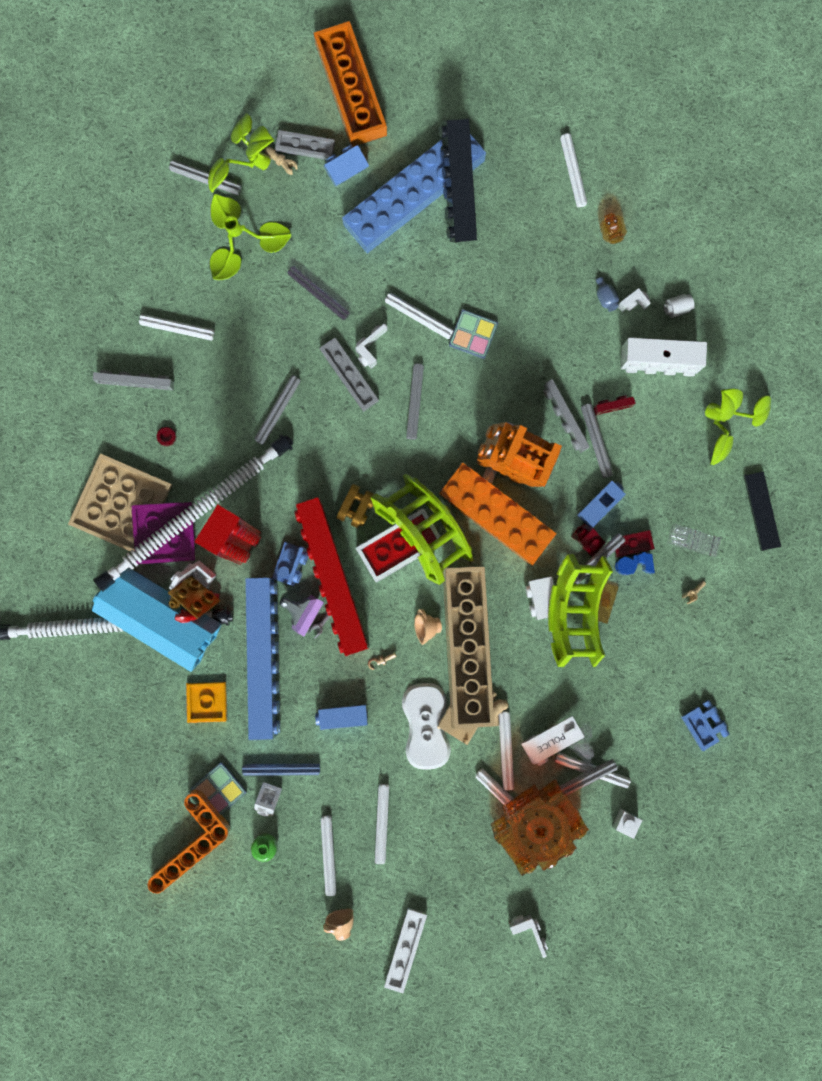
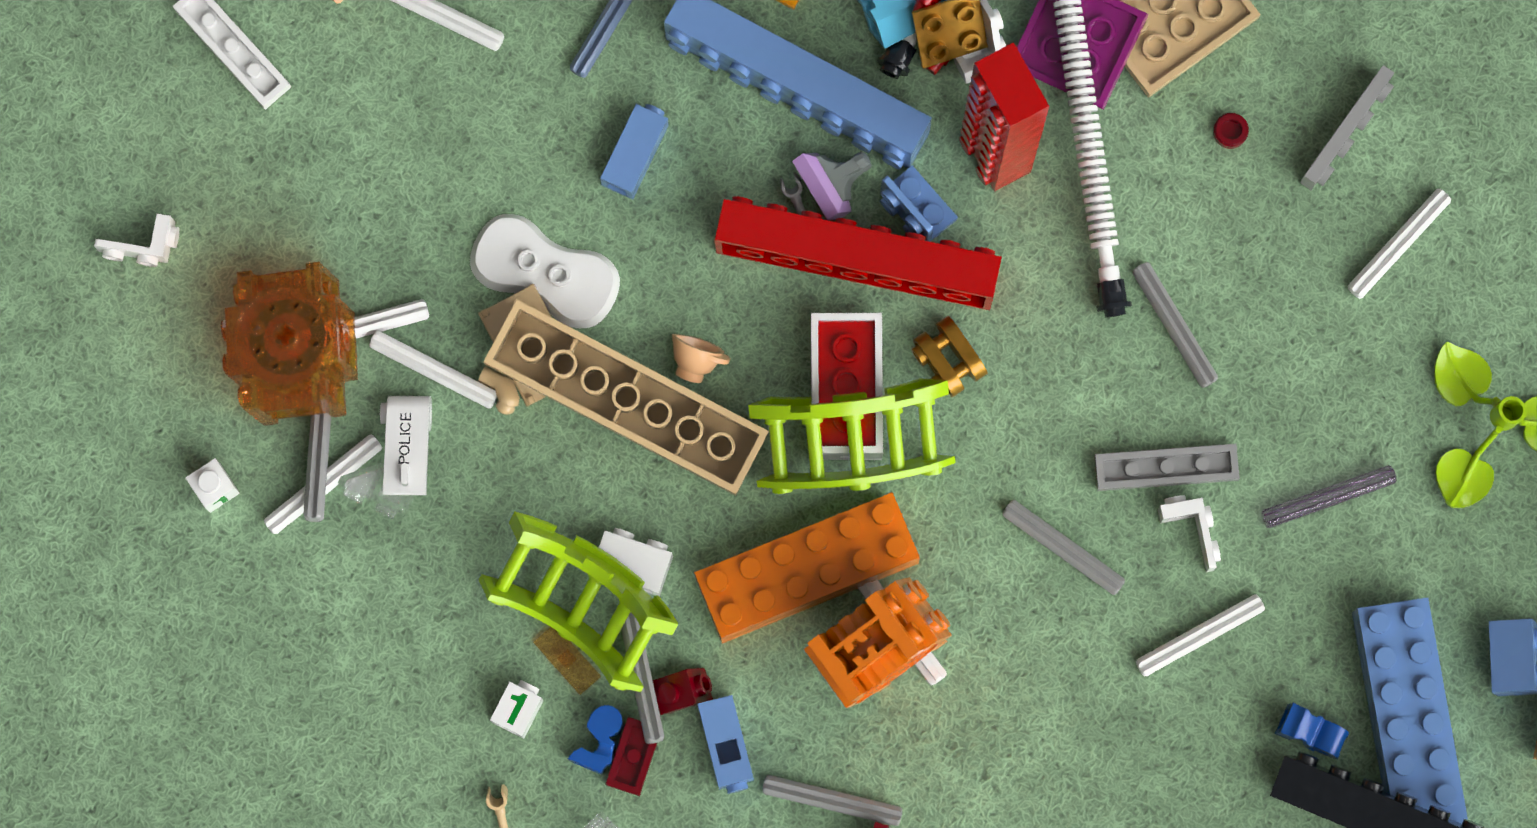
camera: 125 degrees right, 5 degrees down
(381, 829) = (438, 119): white axle -> none
(382, 660) = (685, 261): tan hand -> none
(435, 241) = (1313, 730): none -> blue leg
(473, 334) = (1120, 704): tile -> none
(561, 409) = (915, 770): light grey plate -> none
(644, 611) = (517, 708): none -> white brick
(701, 729) = (284, 688): medium blue plate -> none

